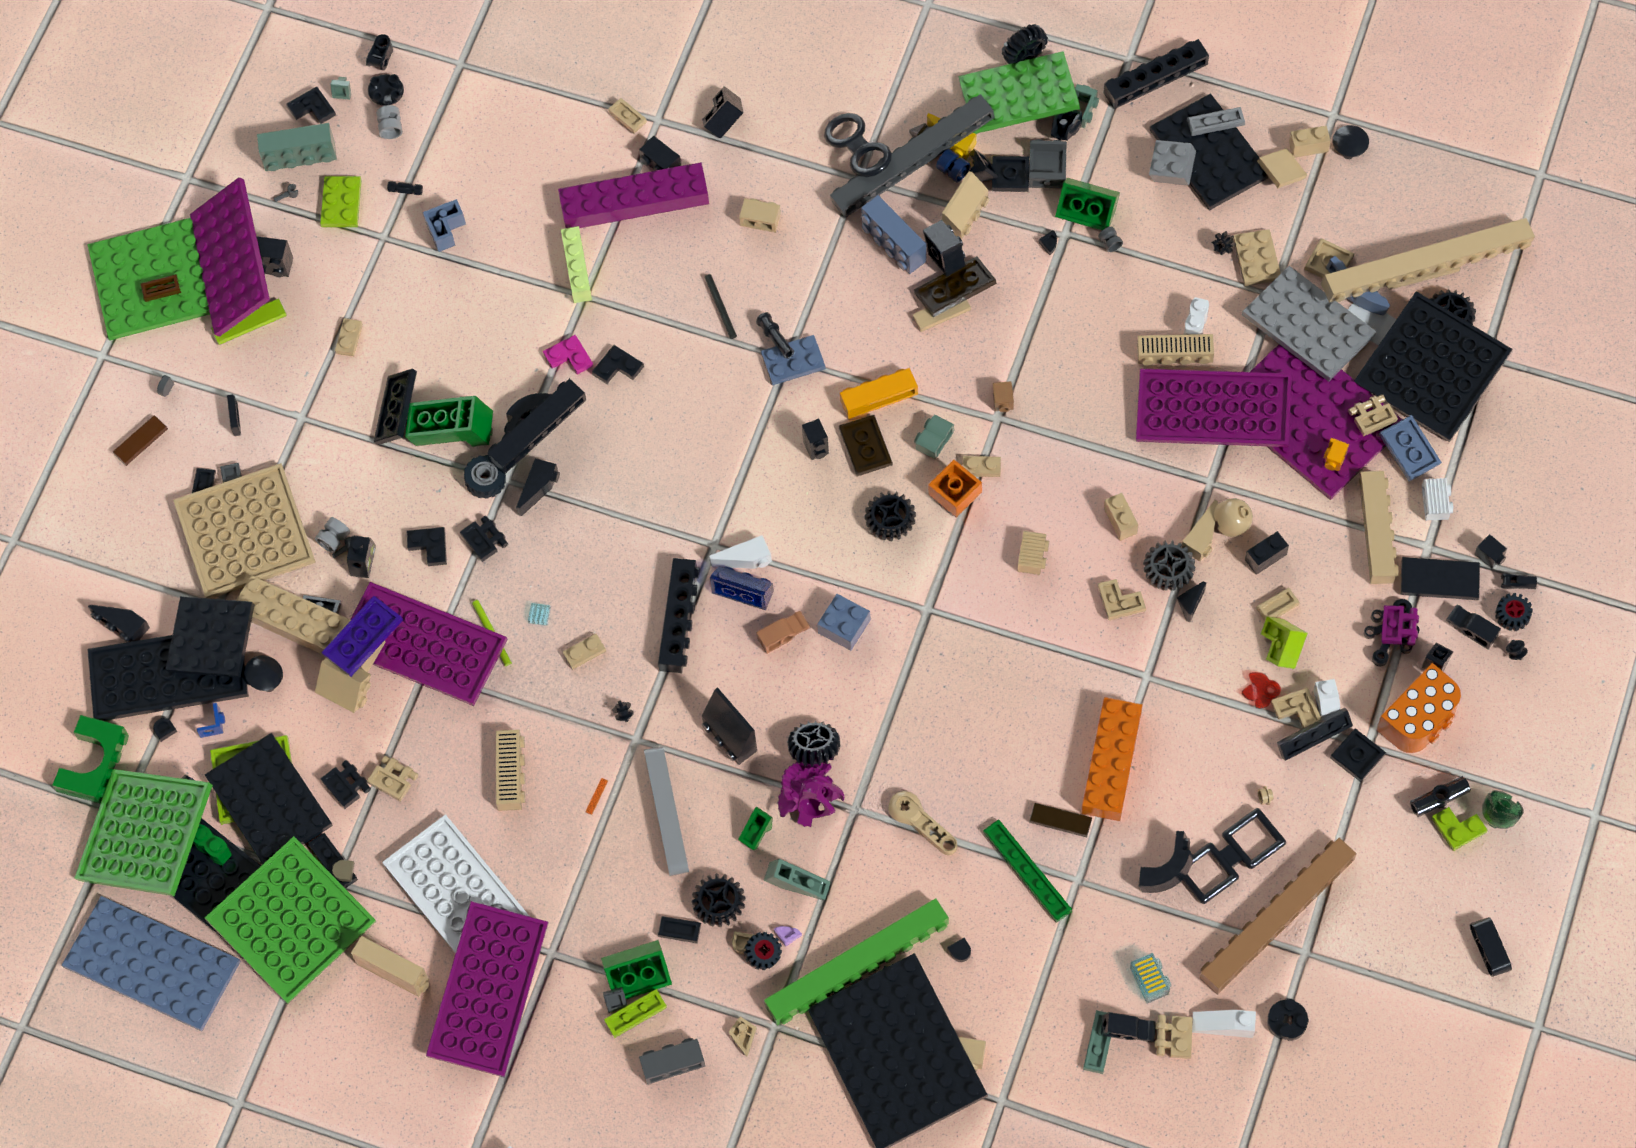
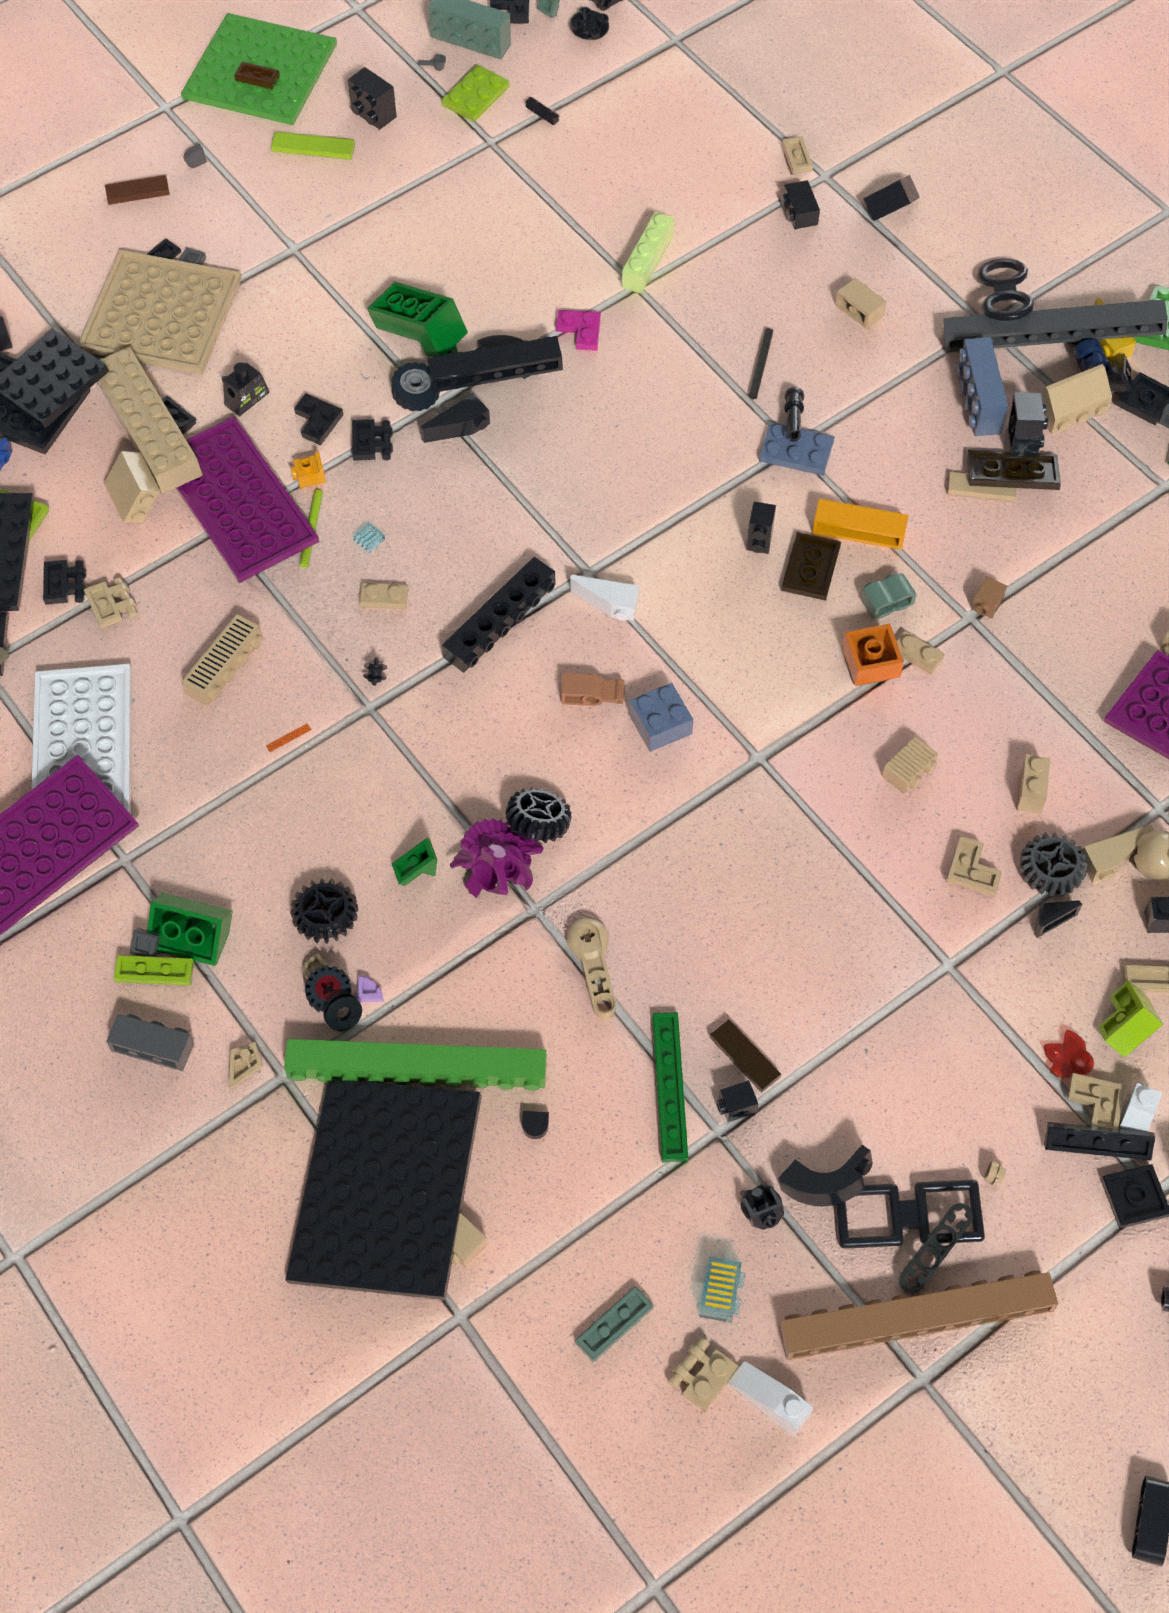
camera: 30 degrees right, 5 degrees down
(229, 257) = (333, 77): magenta plate -> none
(234, 415) = (233, 211): black tile -> none
(263, 673) = (73, 440): black dish -> none
(331, 536) = (230, 356): light grey wheel -> none
(348, 337) = (390, 205): tan plate -> none
(362, 636) = (174, 448): dark purple plate -> none
(389, 122) = (570, 49): light grey wheel -> none
(395, 406) = (381, 280): black tile -> none
(441, 222) = (550, 151): sand blue brick -> none
(459, 595) = (308, 471): none -> light orange brick
(615, 361) = (622, 357): black plate -> none
(634, 196) = (750, 223): magenta brick -> none
(666, 811) = (341, 792): light grey beam -> none
(679, 929) = (265, 916): black tile -> none
(729, 728) = (462, 748): black slope -> none
(741, 587) = (582, 623): clear blue slope -> none
(791, 959) = (349, 1020): none -> black piece
(796, 879) = (419, 941): sand green slope -> none
(880, 506) = (782, 651): black gear -> none
(1049, 242) = (1144, 482): black tile -> none
(1078, 853) = (737, 1101): none -> black brick
(1112, 759) = (846, 1025): orange brick -> none
(1127, 1027) = (656, 1328): black piece -> none
(1139, 909) = (762, 1206): none -> black hand
(1258, 866) = (932, 1245): none -> pearl dark grey beam
(1287, 1031) = (836, 1454): black plate -> none

